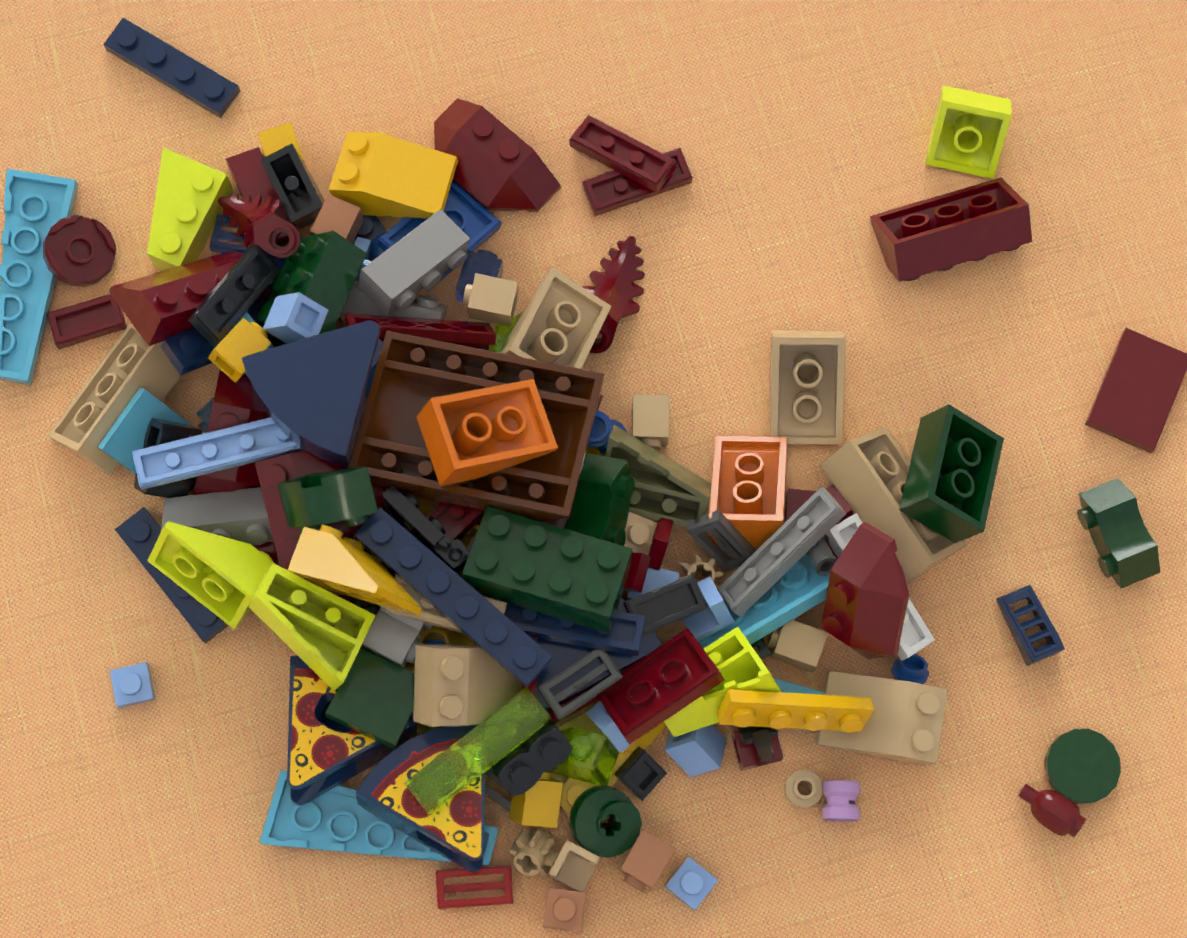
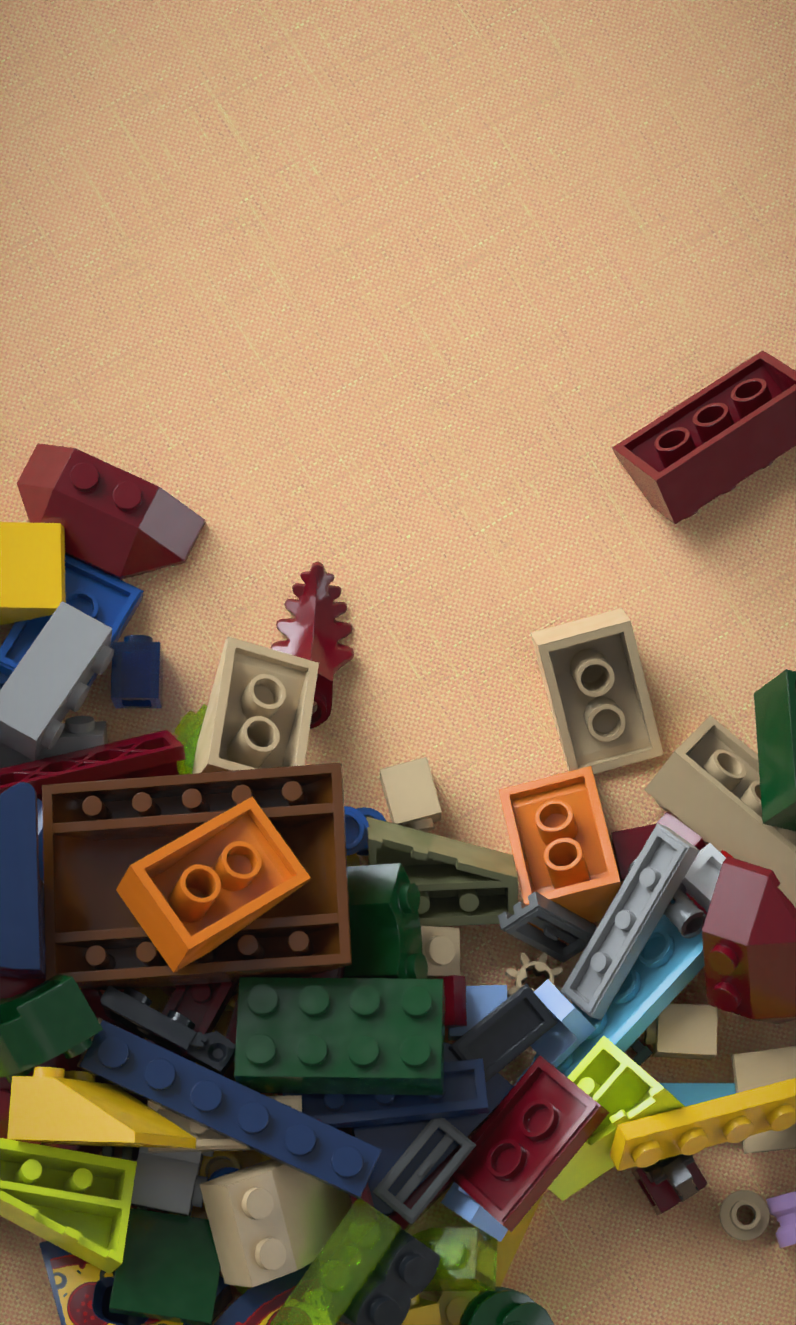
camera: 15 degrees left, 0 degrees up
(491, 299) = (162, 699): tan brick -> none
(616, 190) = (302, 487): dark red tile -> none
(622, 153) = (273, 457): dark red tile -> none
(640, 773) = (532, 1258): black tile -> none
(660, 543) = (471, 953): dark red tile -> none
(697, 750) = (596, 1208): light blue panel -> none
(968, 131) = (705, 303): neon yellow slope -> none

